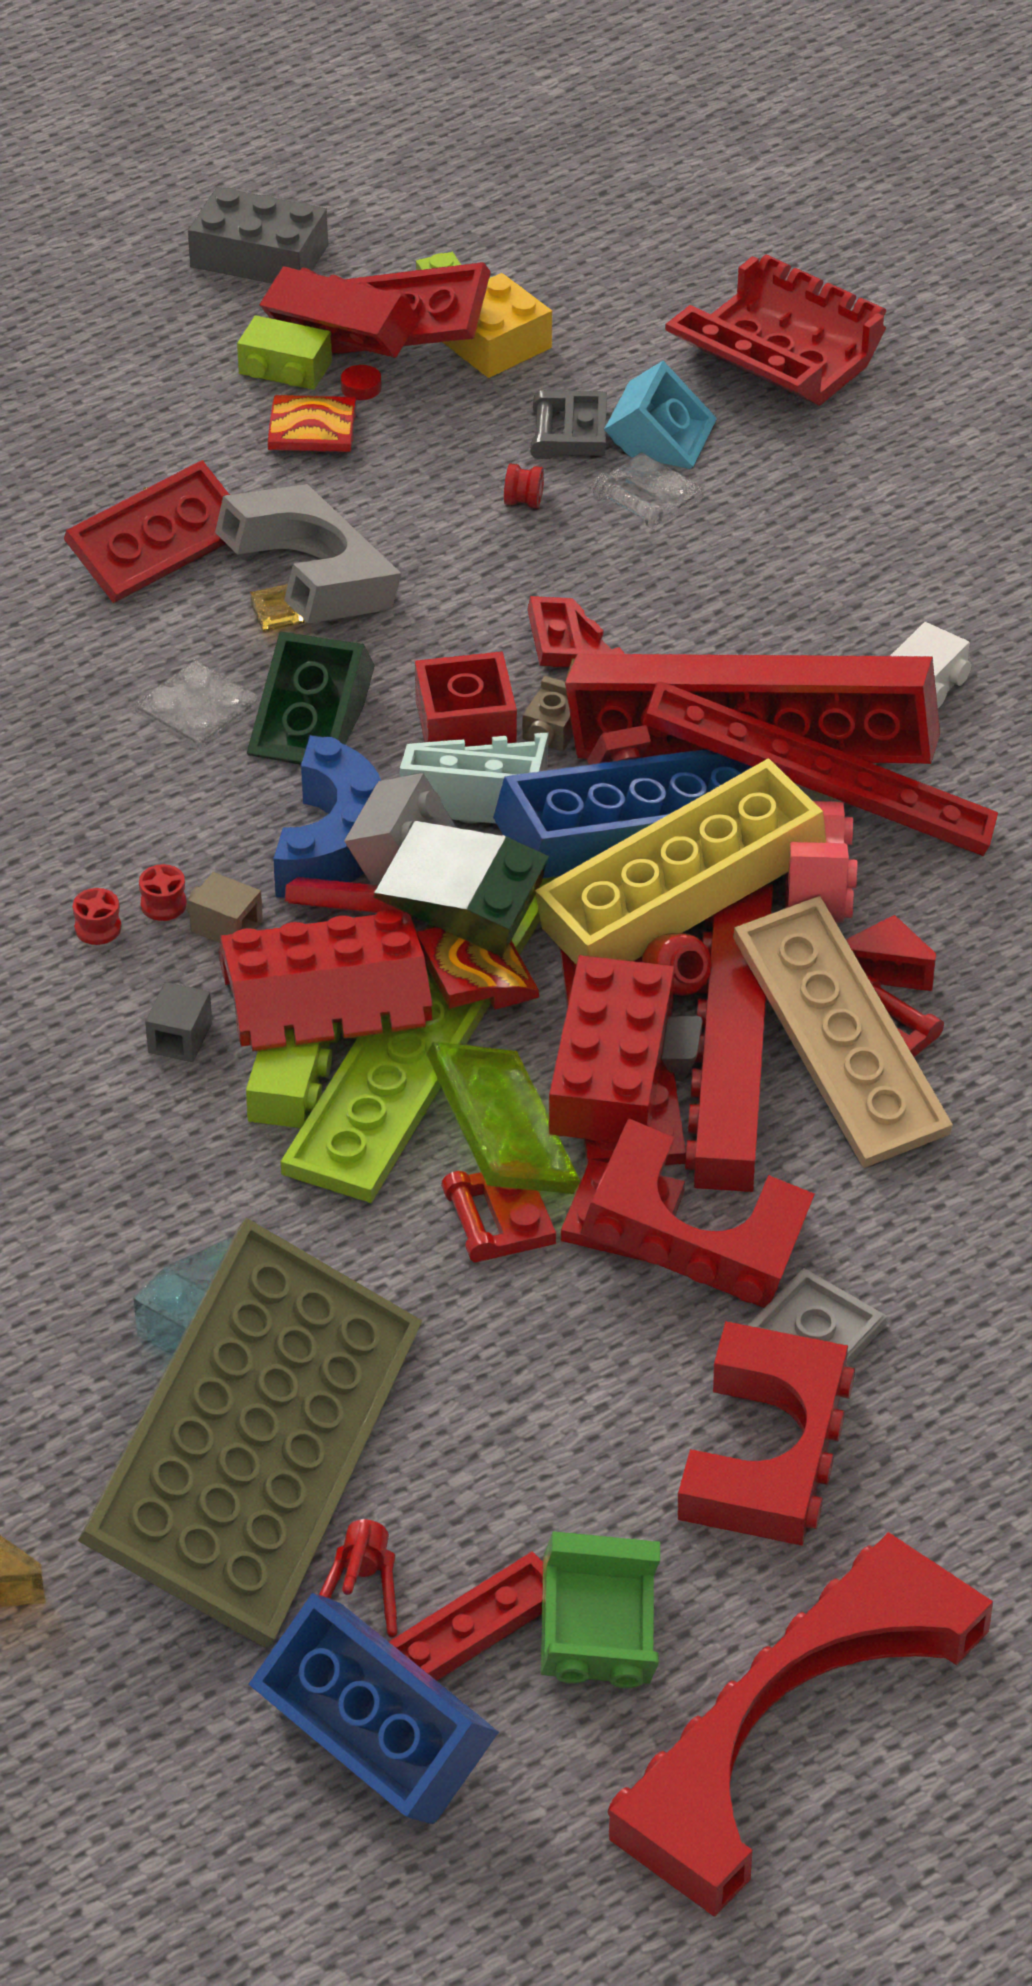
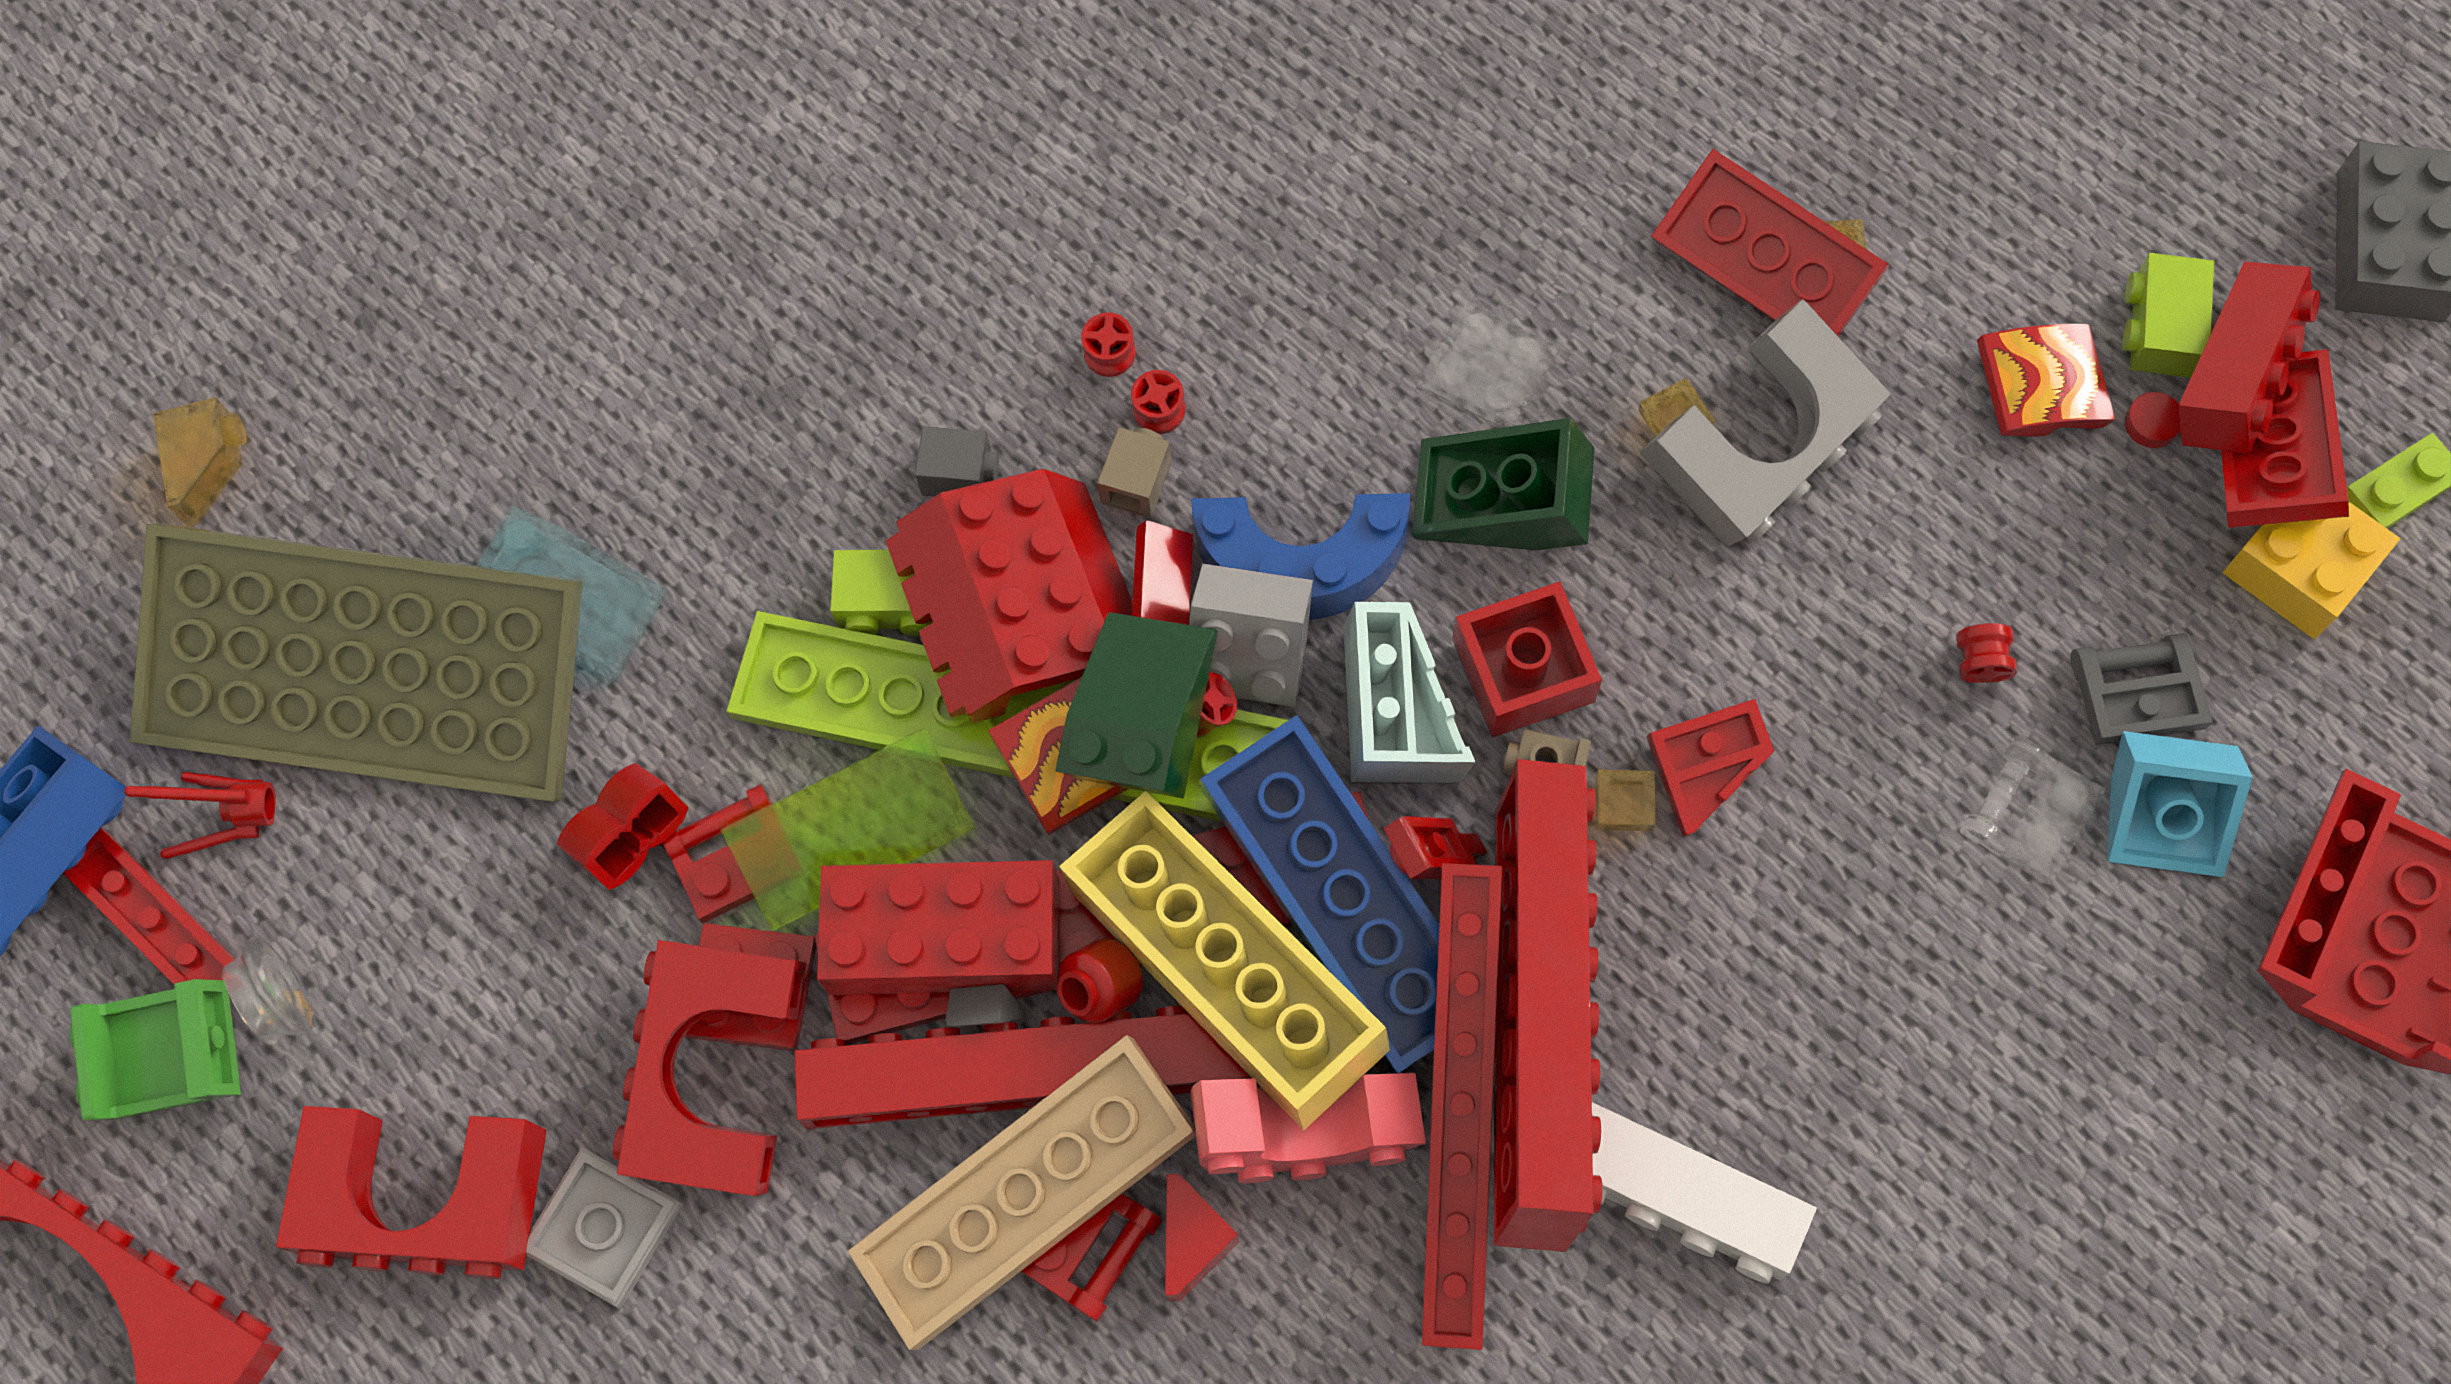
camera: 85 degrees right, 25 degrees up
(461, 1264) = (627, 820): none -> red brick
(564, 1504) = (268, 993): none -> clear hat

